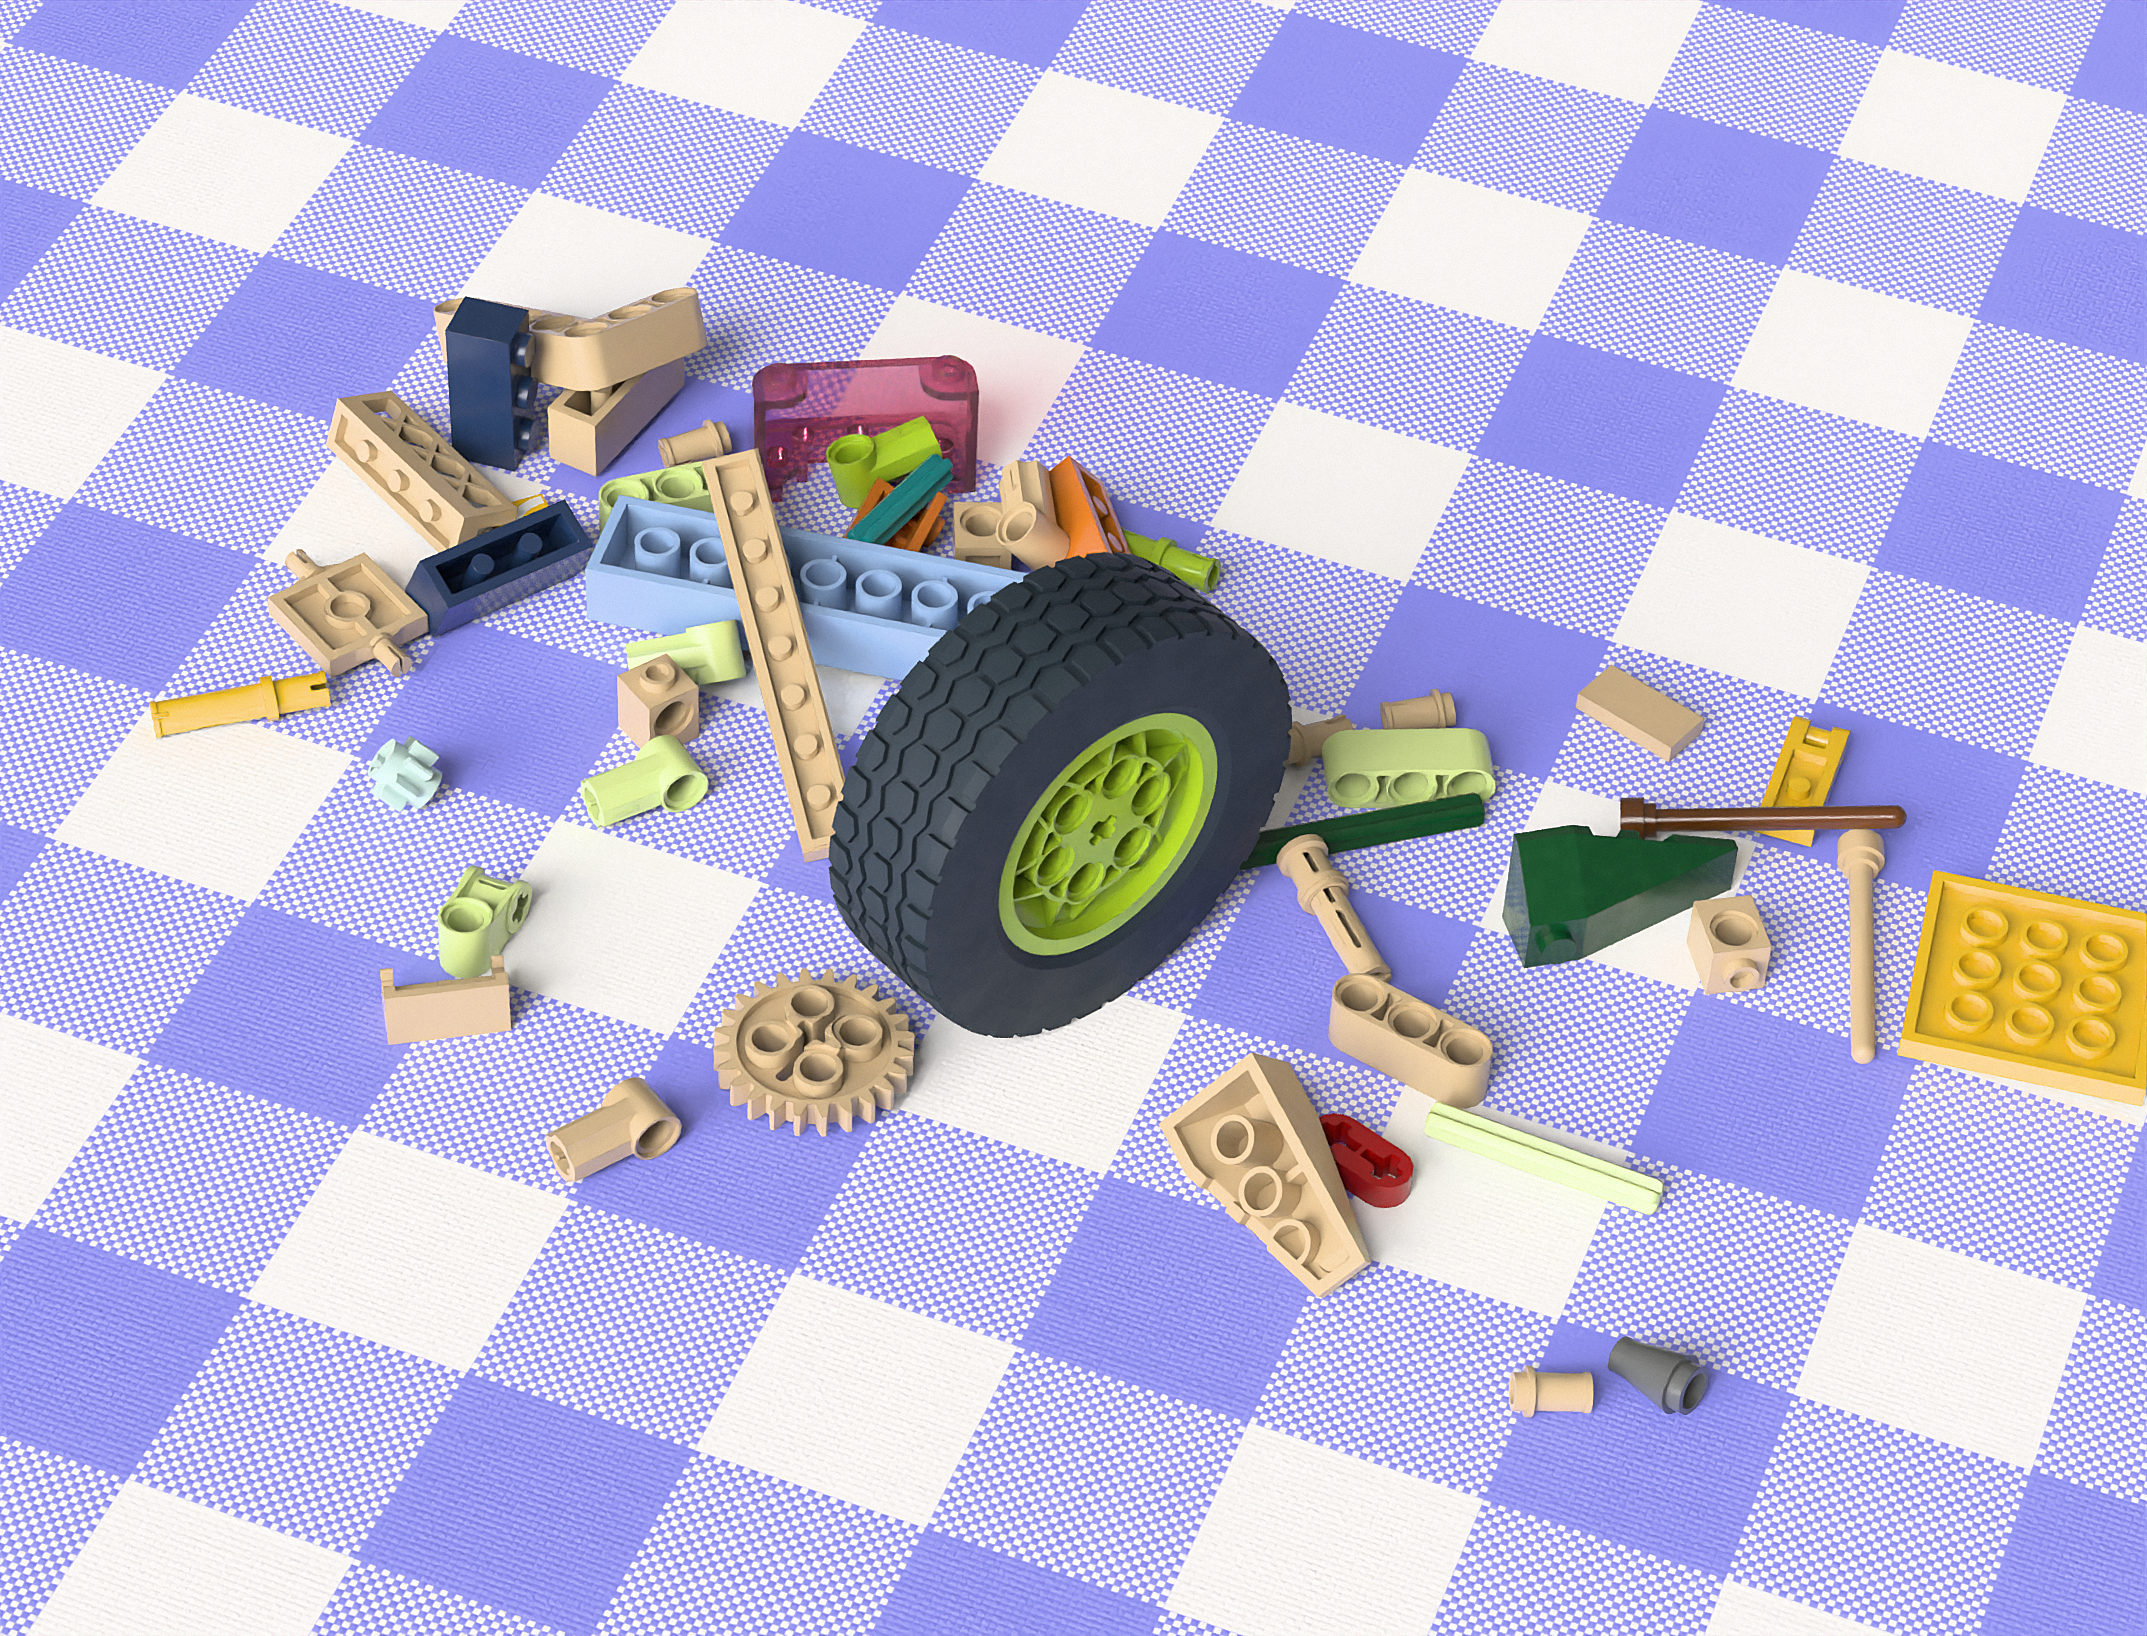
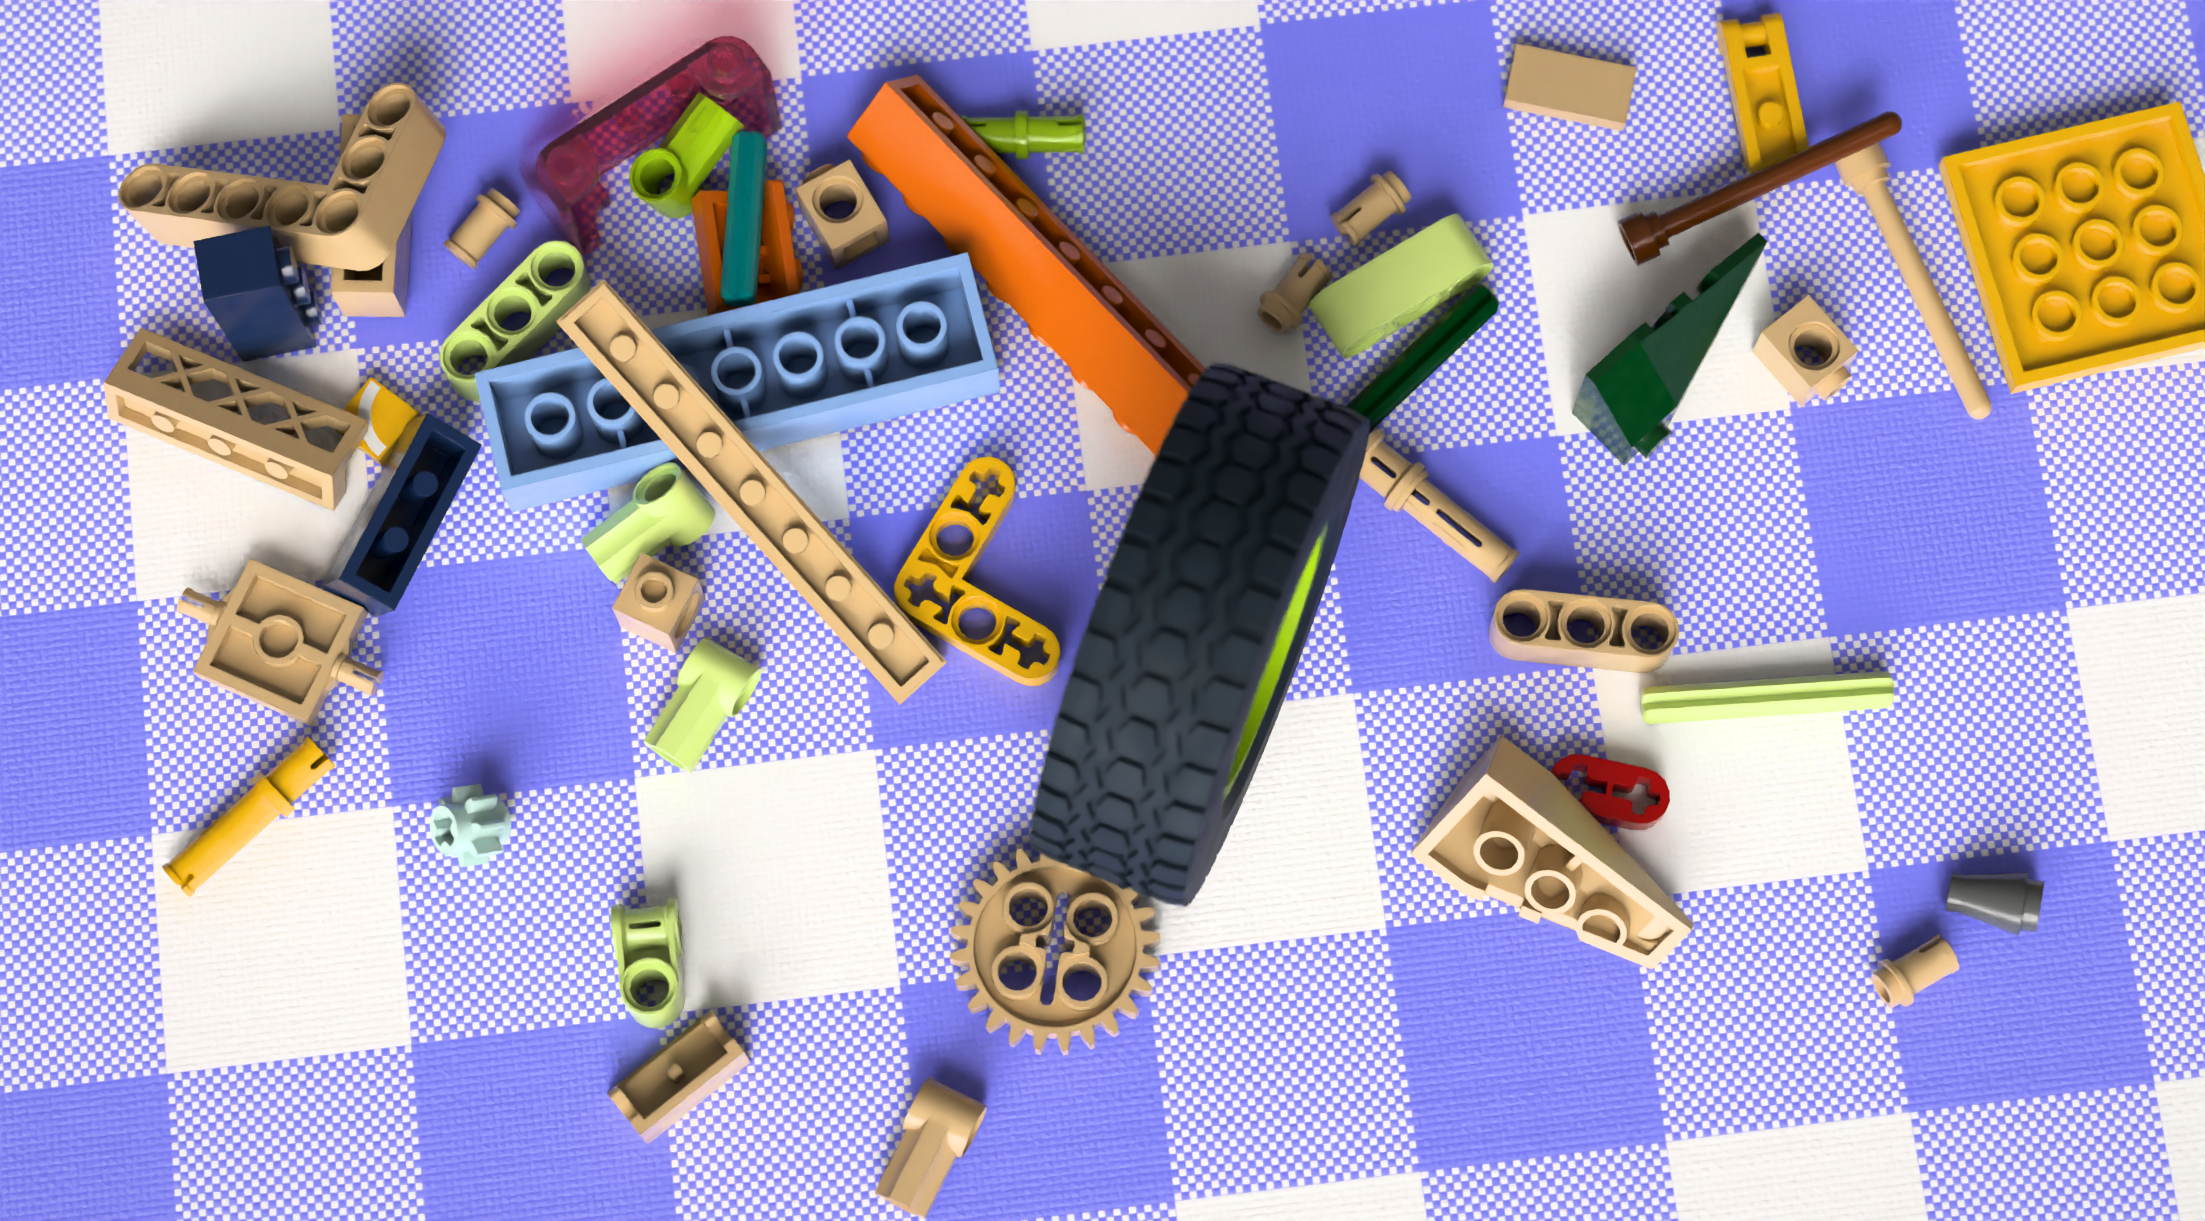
camera: 25 degrees left, 30 degrees up
(1029, 517) = (886, 178): tan piece -> none

